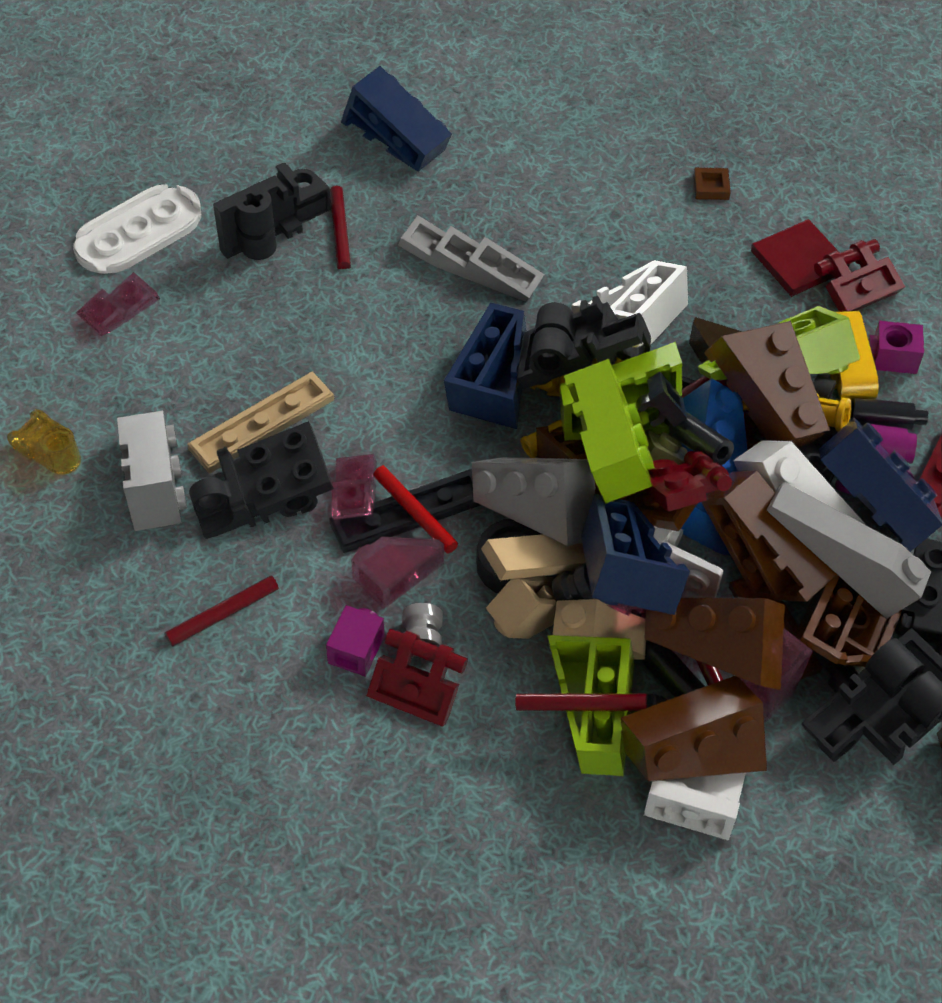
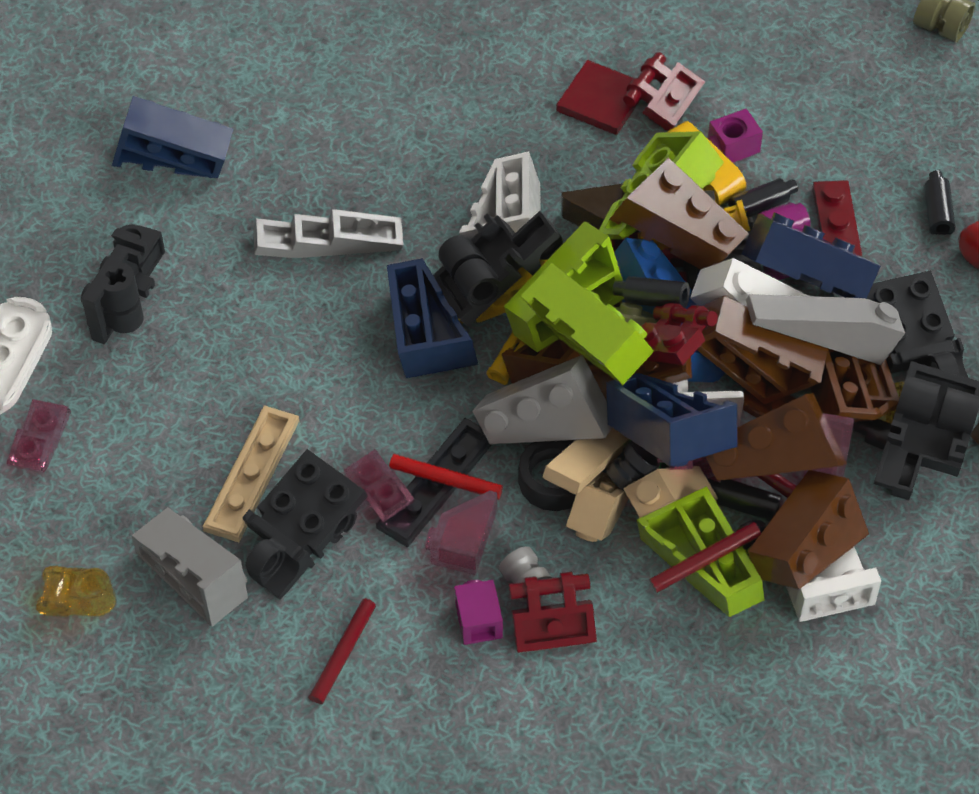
camera: 30 degrees left, 0 degrees up
(340, 228) = (190, 267): dark red bar -> none
(665, 399) = (609, 276): black tile -> none
(711, 183) = (483, 66): reddish brown tile -> none

